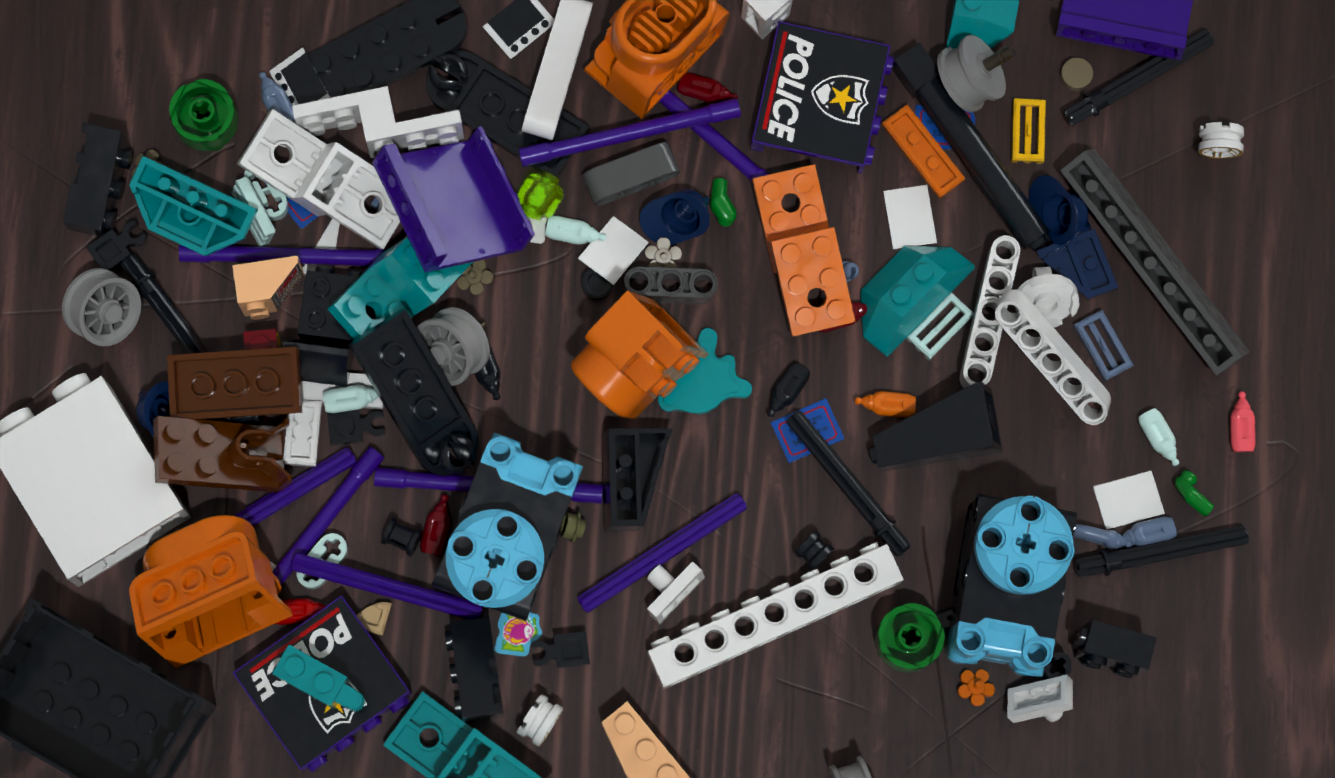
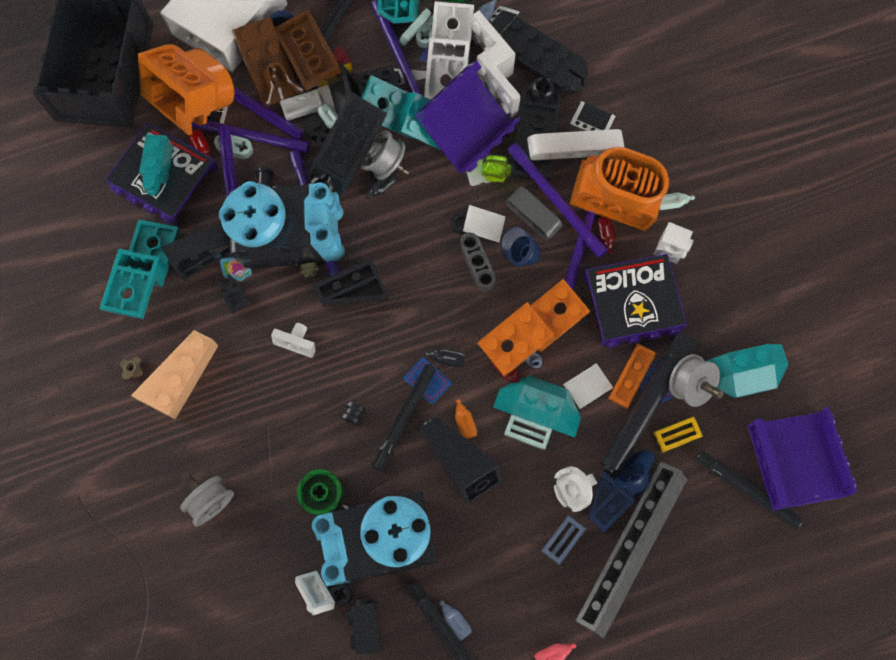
camera: 75 degrees right, 5 degrees down
(266, 285) = (373, 46): light nougat slope -> none
(375, 617) = (212, 186): tan tile -> none
(474, 276) = (433, 157): dark tan plant -> none
(540, 720) = (185, 298): white wheel -> none
(571, 231) = (484, 196): light aqua piece -> none
(635, 355) = (420, 251): orange brick -> none
(662, 255) = (494, 252): dark tan plant -> none
(662, 553) = (316, 327): dark purple axle -> none
(708, 383) = (430, 305): teal tile -> none
(721, 204) = (541, 270): green arm -> none
(884, 576) = (245, 359): white brick -> none
(975, 686) = (310, 550): orange plant -> none
(989, 297) = (557, 451): white beam -> none
(1054, 371) = (529, 516): white beam -> none
(1076, 74) = (729, 449): dark tan tile -> none
(1109, 539) = (439, 596): sand blue piece -> none
(1128, 500) = (471, 599): white sticker -> none
(1159, 434) = (522, 601): light aqua piece -> none
(1192, 496) = (491, 638): green arm -> none
(1221, 140) = (734, 559): white wheel -> none

